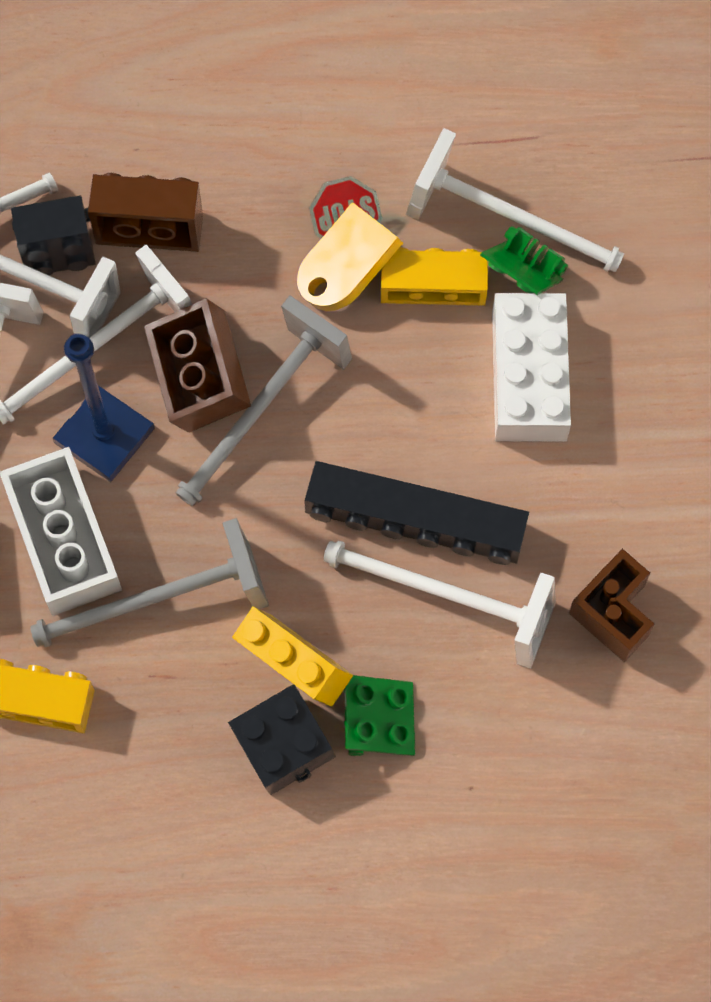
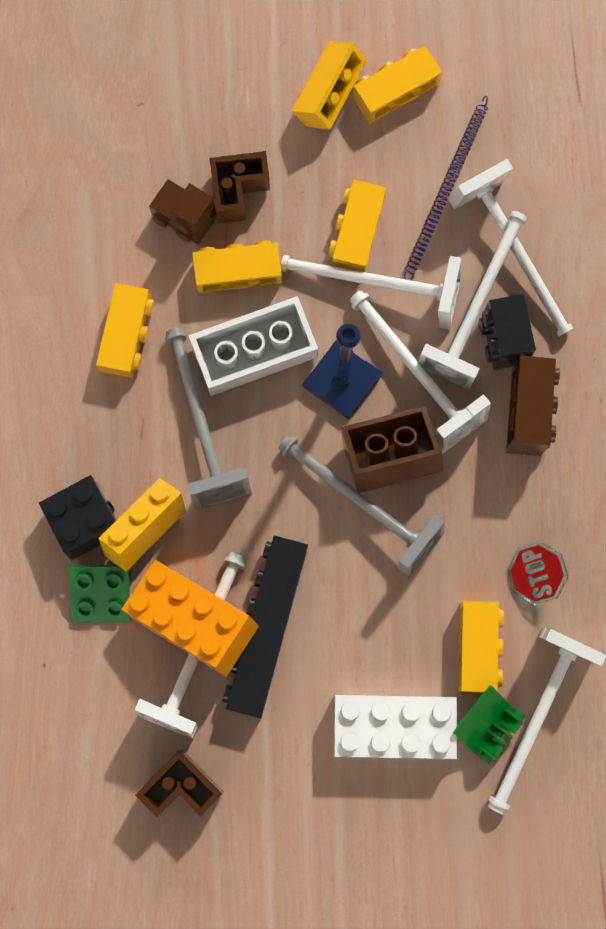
camera: 90 degrees right, 10 degrees up
(346, 259) = (492, 573): yellow tile -> none
(409, 593) = (190, 617): none -> light orange brick

